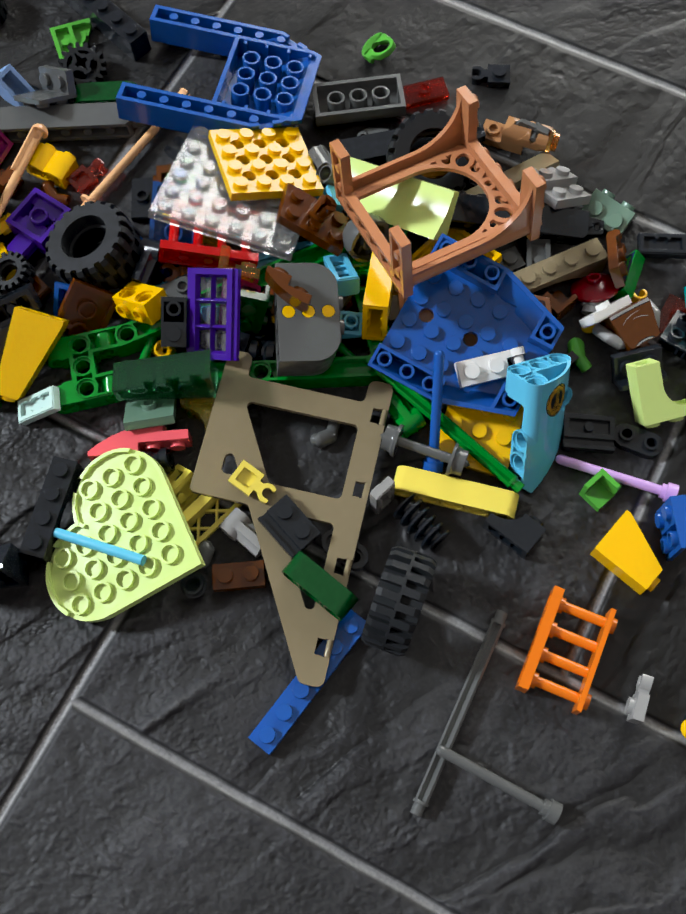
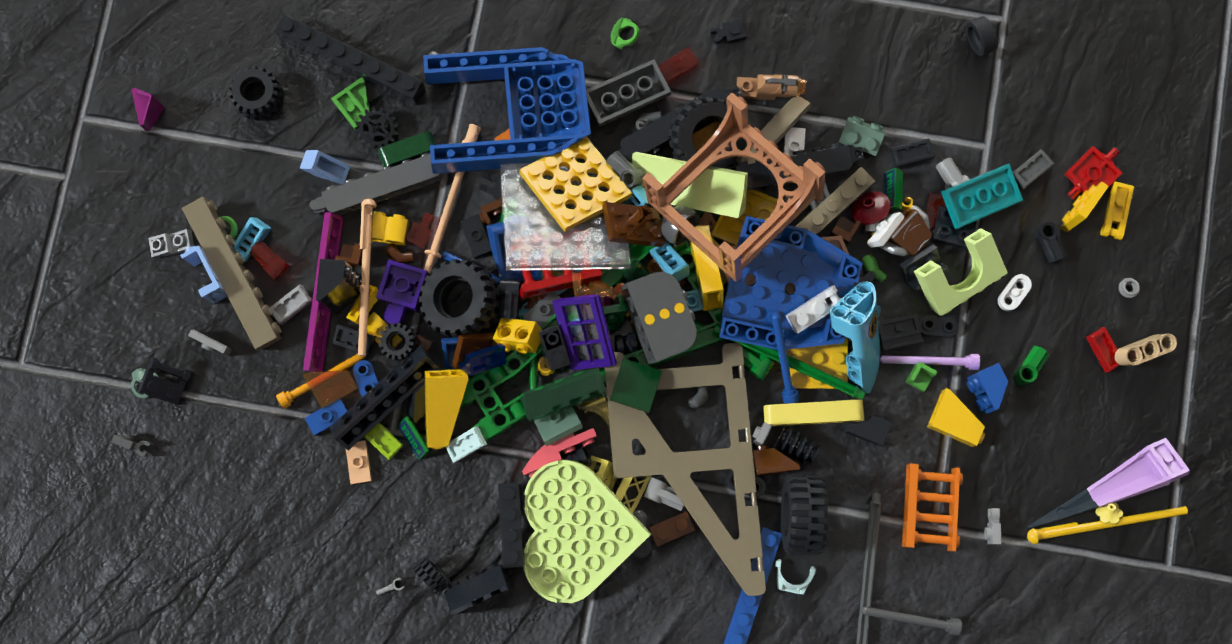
camera: 20 degrees left, 10 degrees up
(57, 87) = (362, 161): dark grey bracket -> none
(91, 312) = (484, 359): none -> clear blue panel
(100, 546) = (568, 544): medium azure bar -> none
(248, 479) = (659, 457): light yellow plate -> none
(251, 392) = (635, 385): none -> dark green slope
(280, 283) = (640, 302): reddish brown slope -> none
(289, 526) = (701, 482): black plate -> none
(320, 586) = (740, 521): dark green beam -> none
(367, 697) = (783, 585): none -> light aqua helmet
(383, 532) = (772, 462): none -> reddish brown slope
(393, 439) = (809, 388): dark grey piece -> none
(562, 188) = (816, 130): light grey plate -> none
(616, 258) = (881, 177): reddish brown plate -> none

